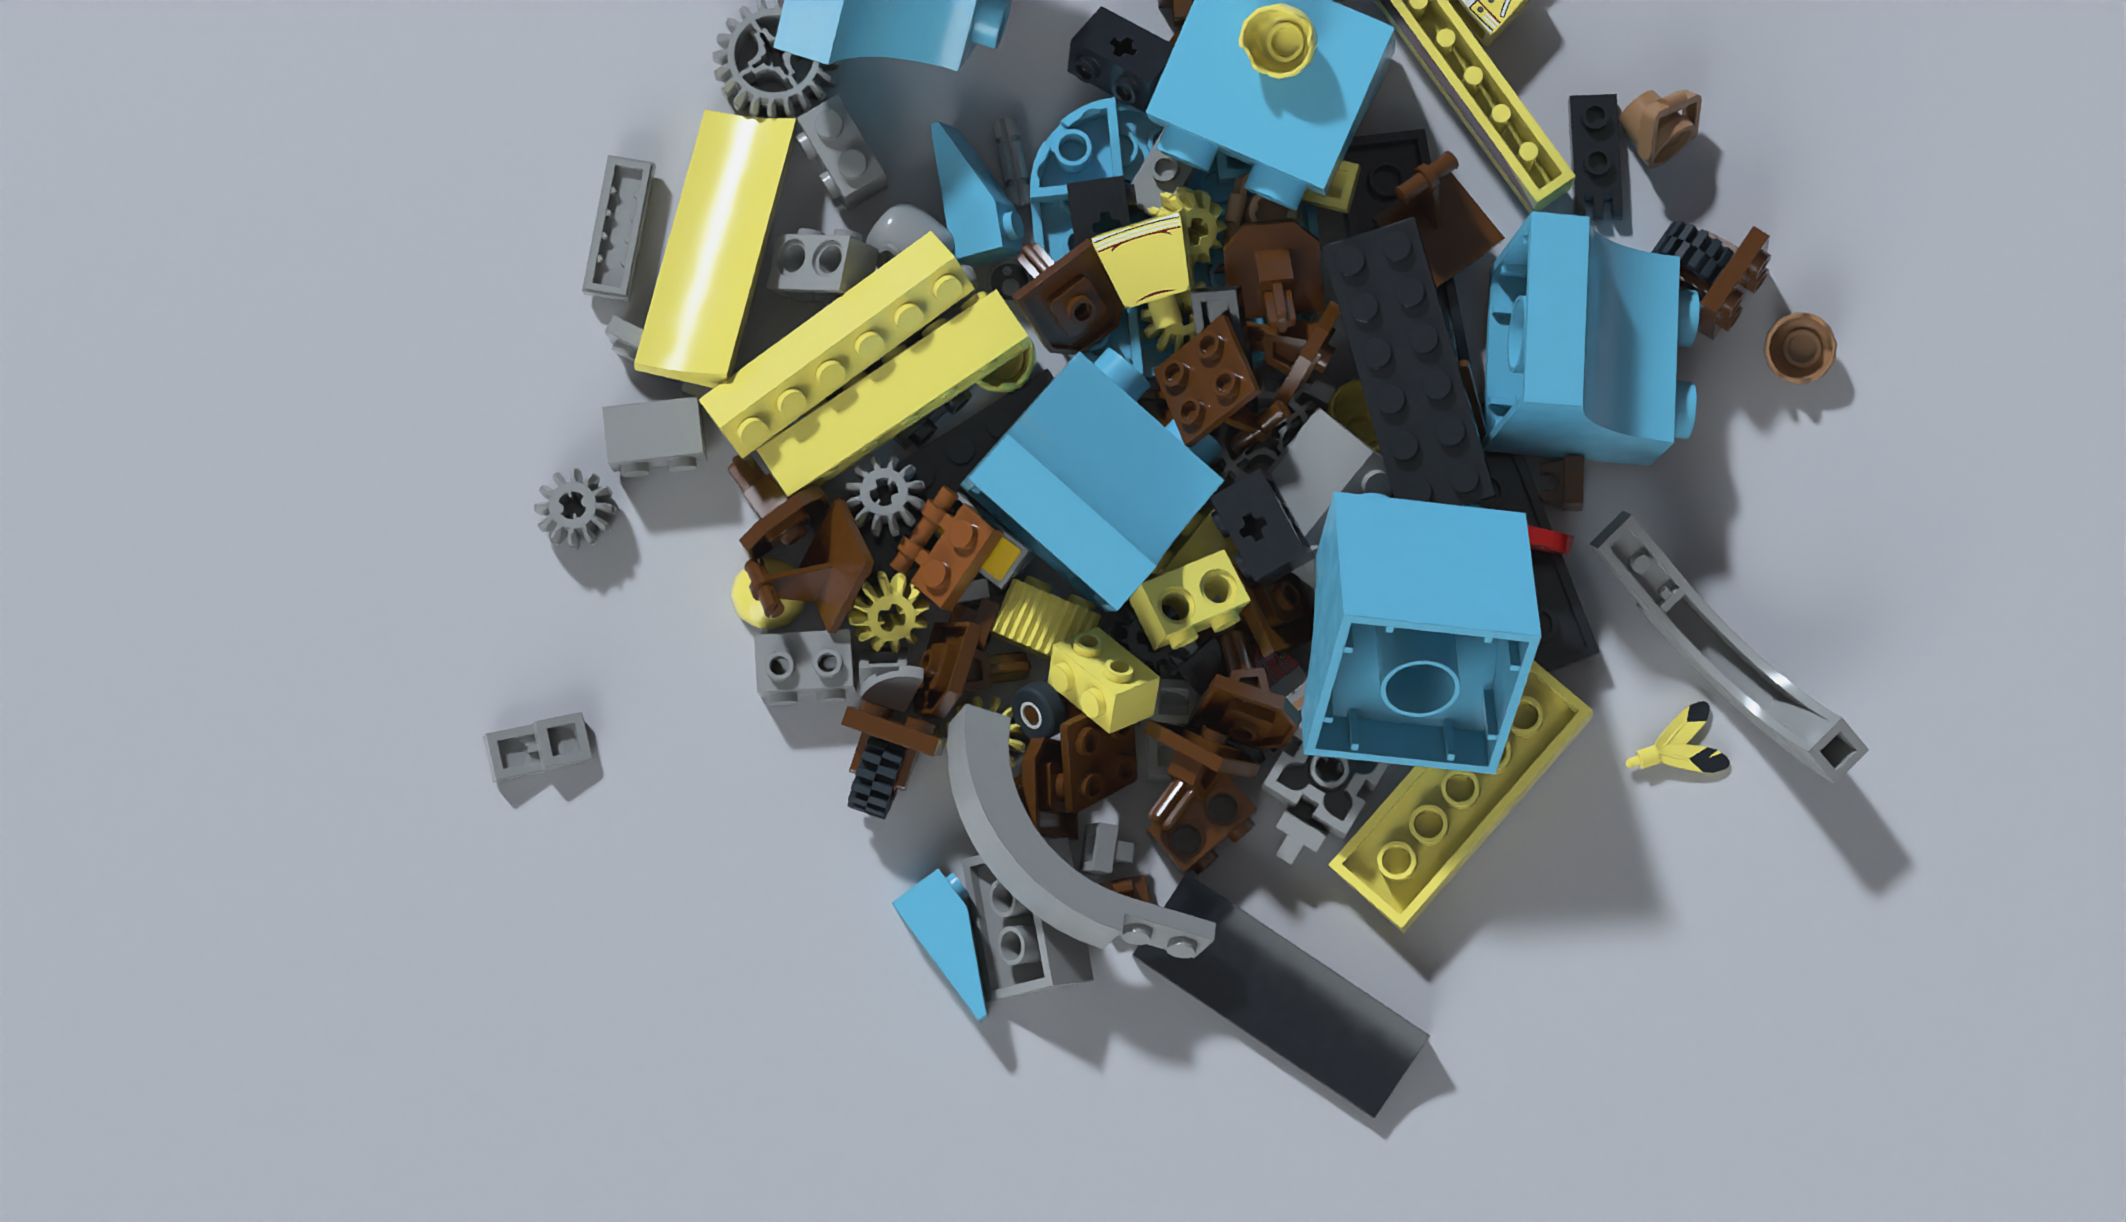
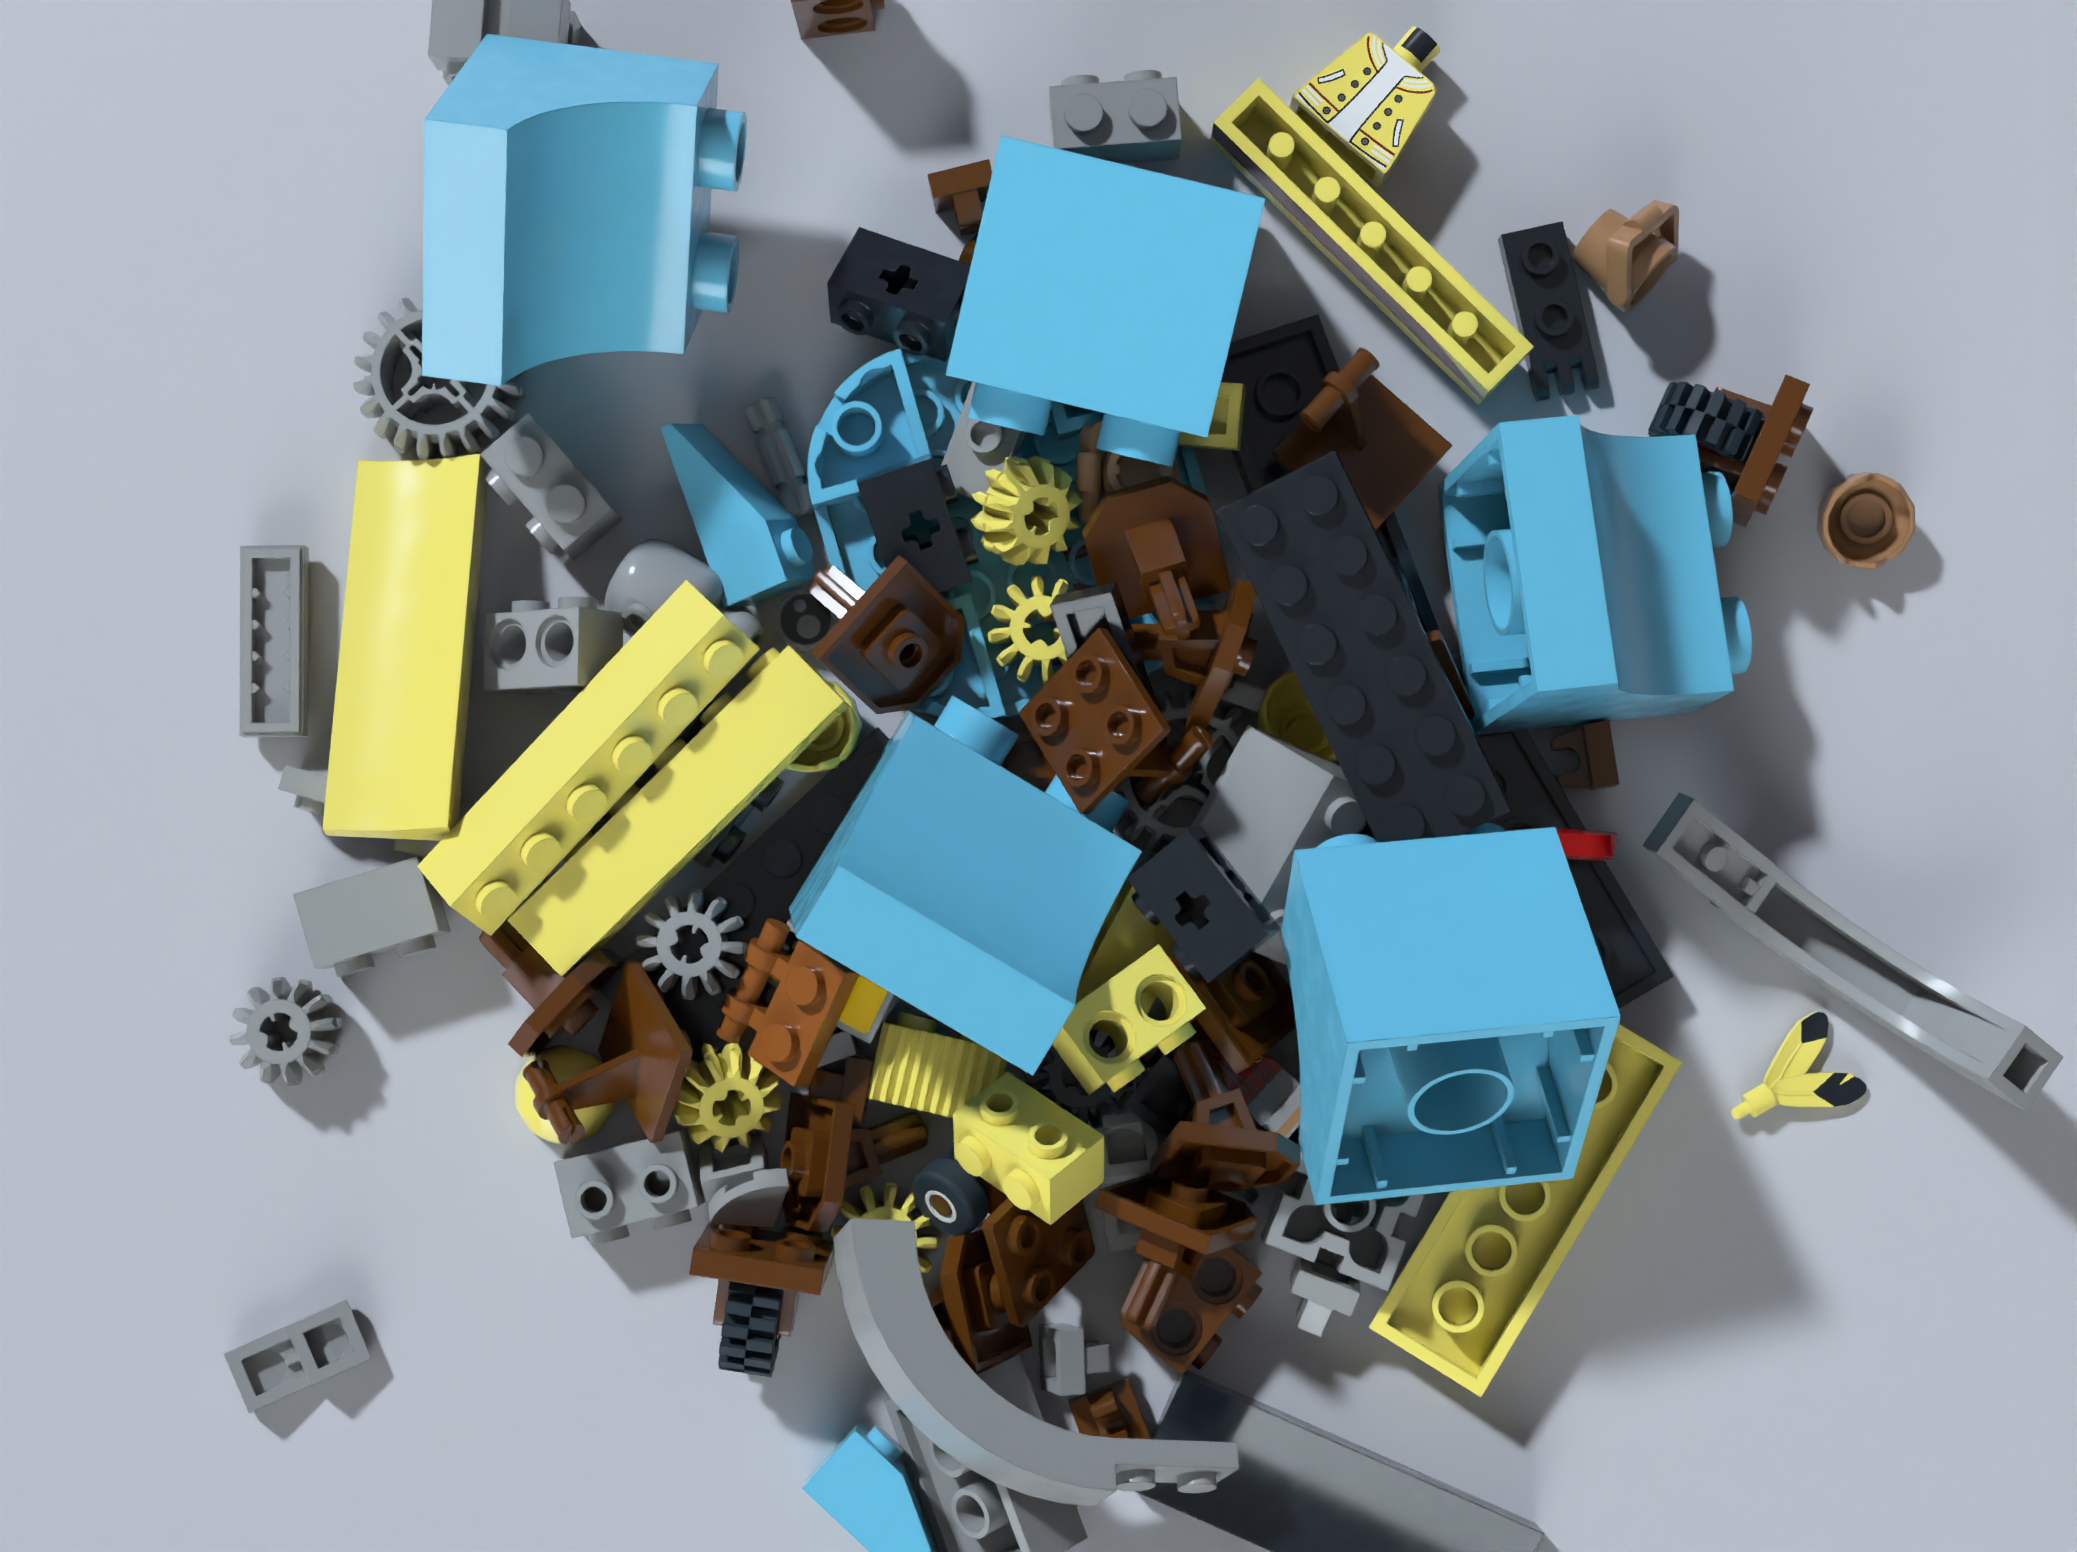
camera: 10 degrees left, 5 degrees up
(1150, 264) = (988, 574): light yellow torso -> none
(1278, 40) = (1111, 246): light yellow hair -> none

